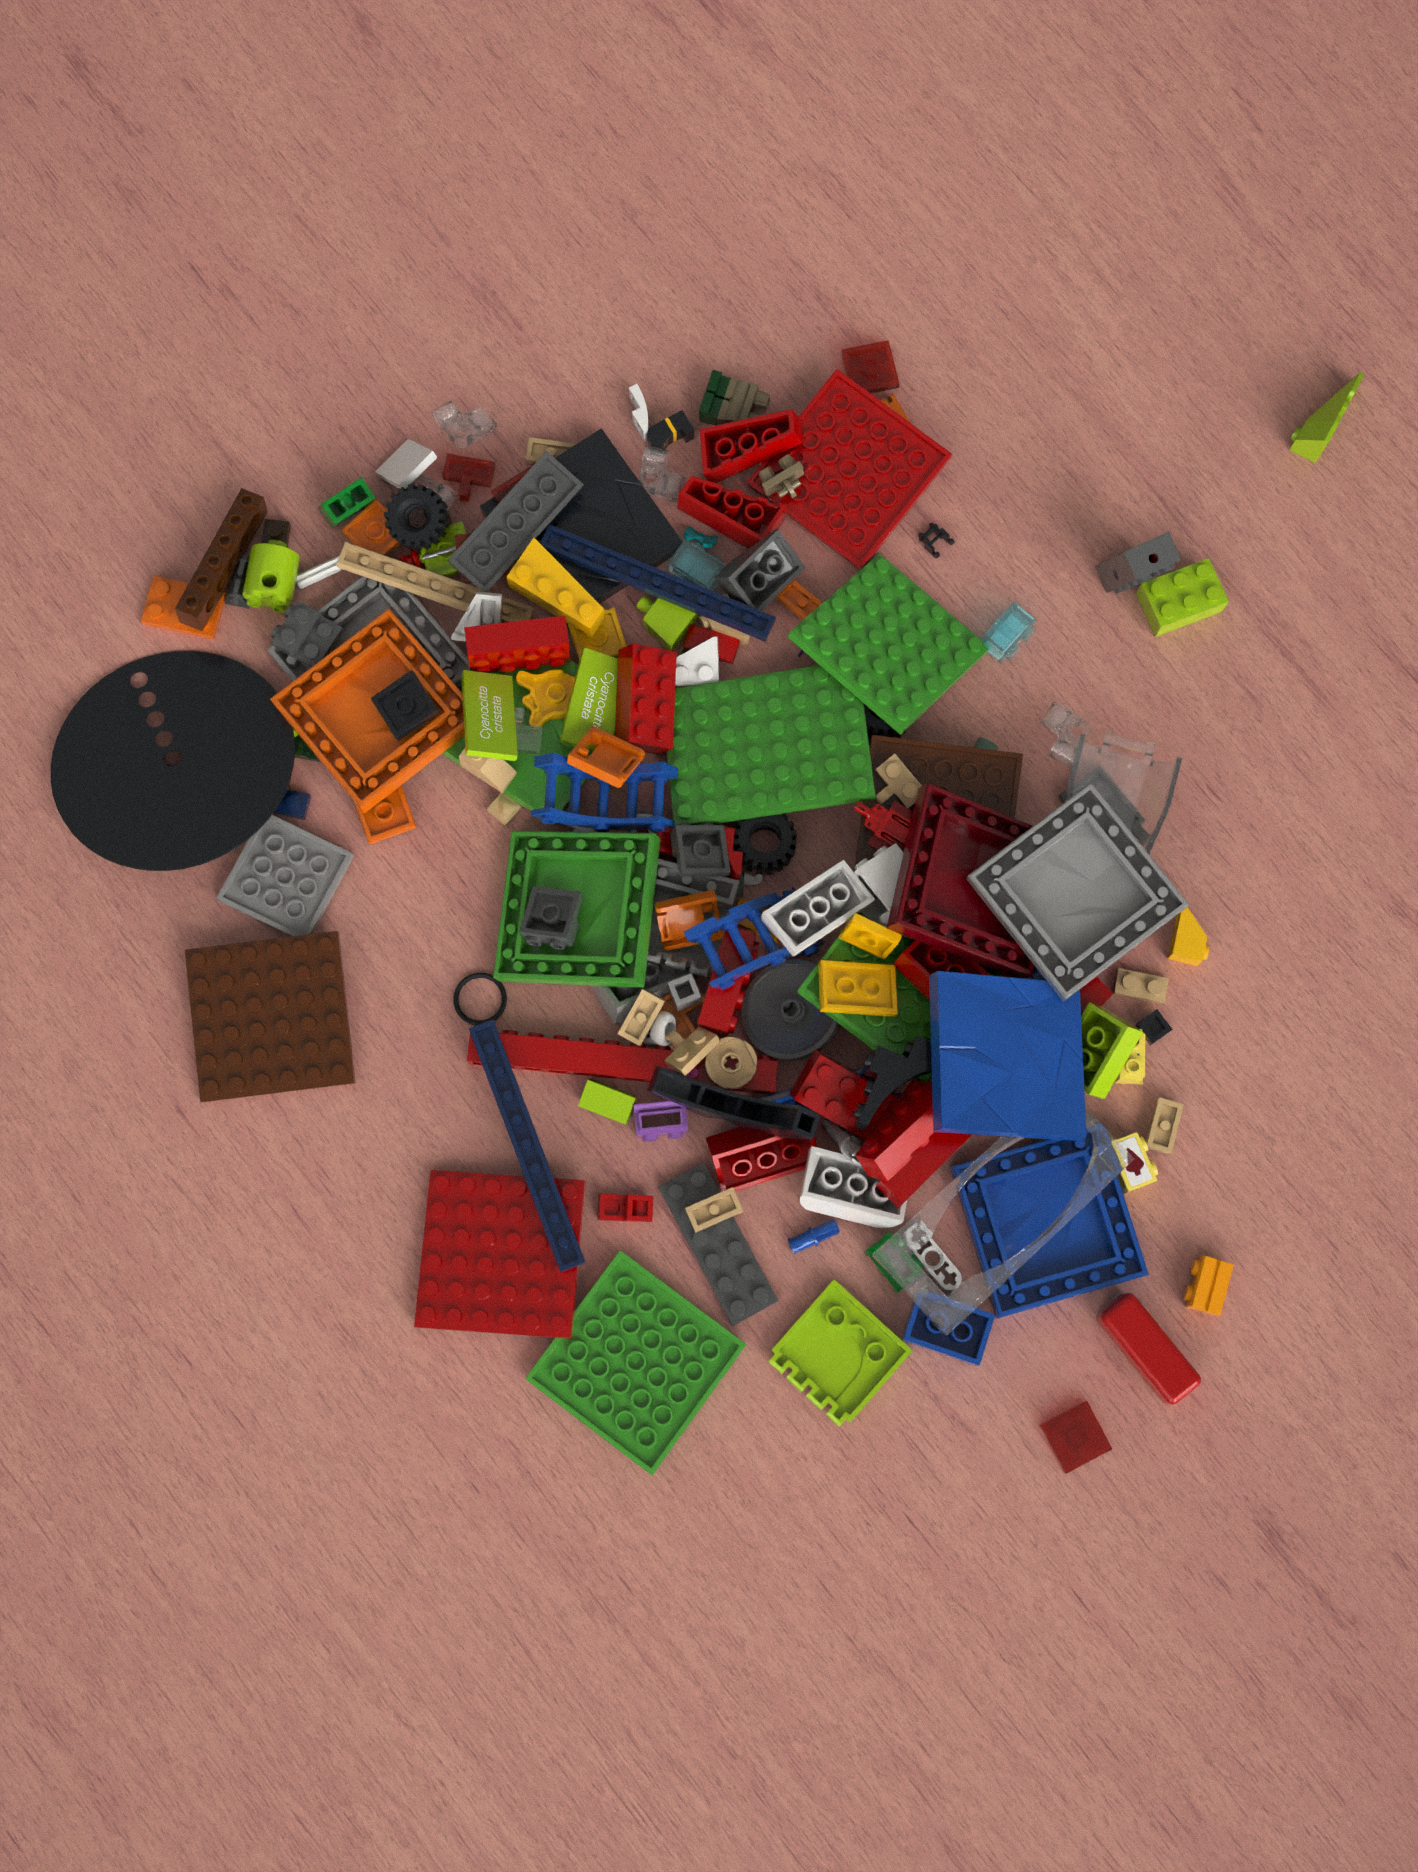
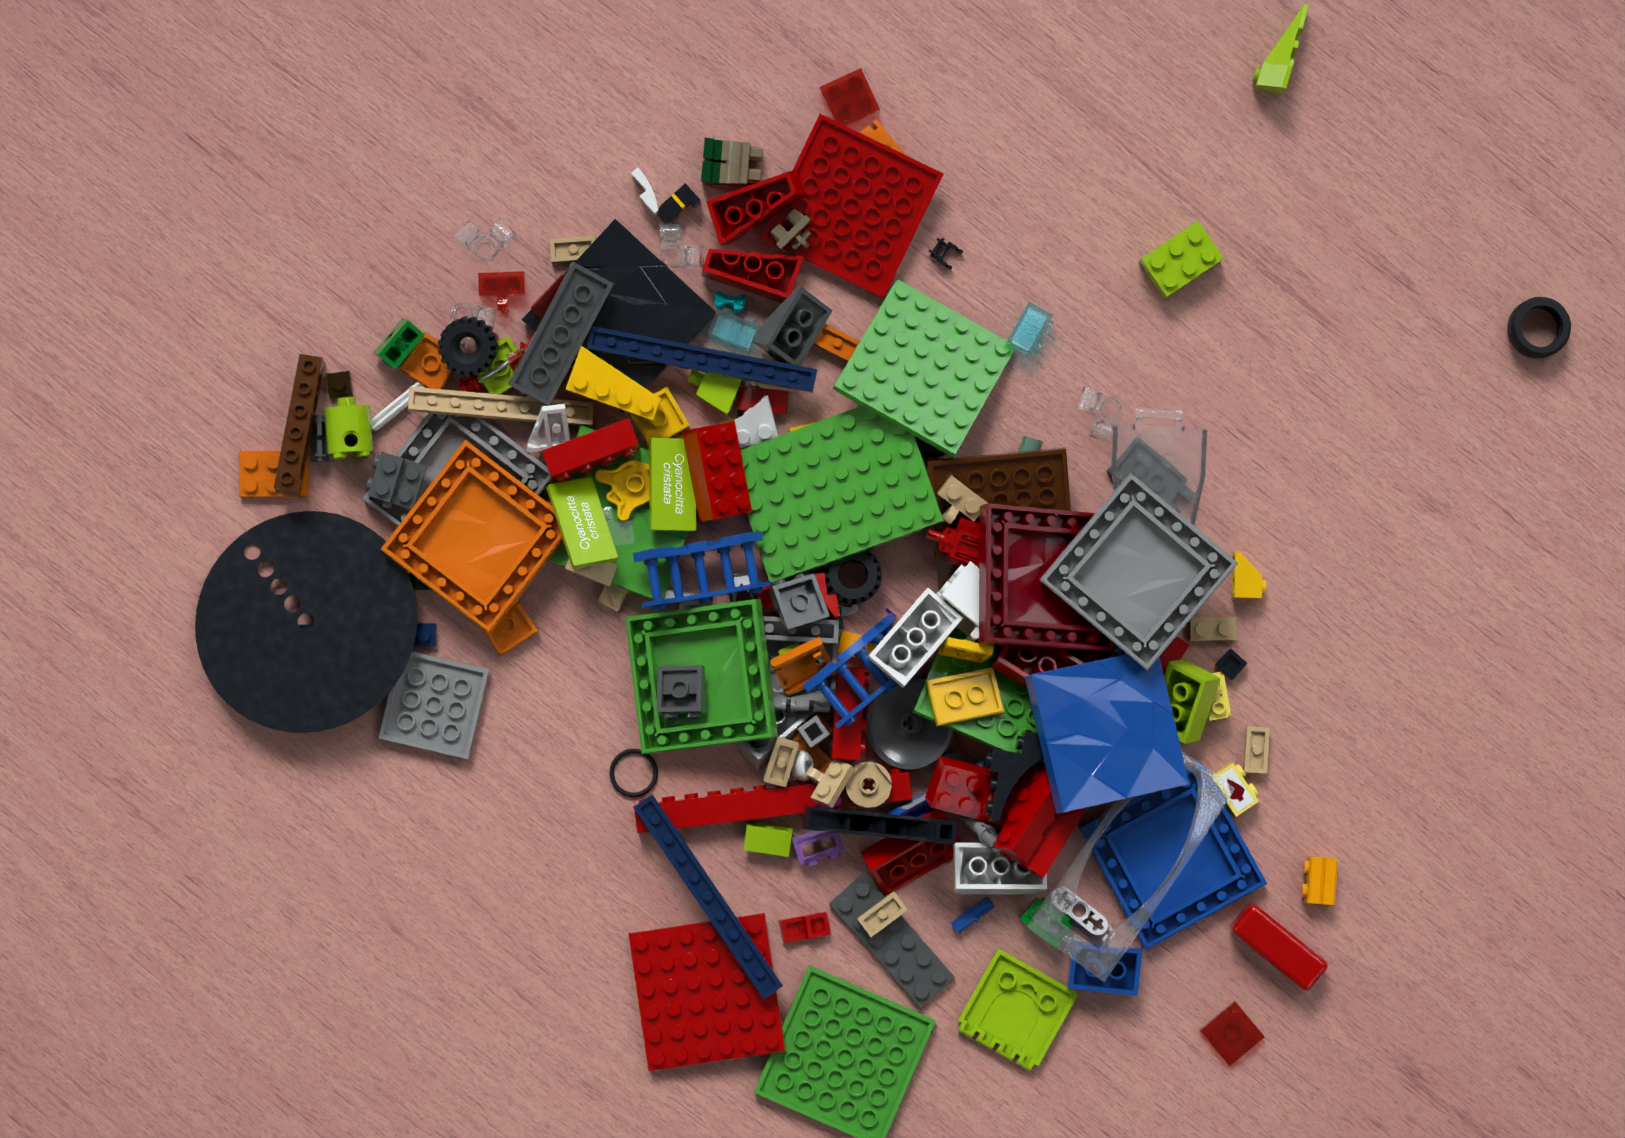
camera: 10 degrees left, 10 degrees up
(269, 1016) = (453, 831): reddish brown plate -> none
(405, 705) = (504, 530): black plate -> none
(406, 464) = (443, 293): white tile -> none
(610, 761) = (701, 541): orange container -> none
(1138, 564) = (1134, 246): dark grey brick -> none

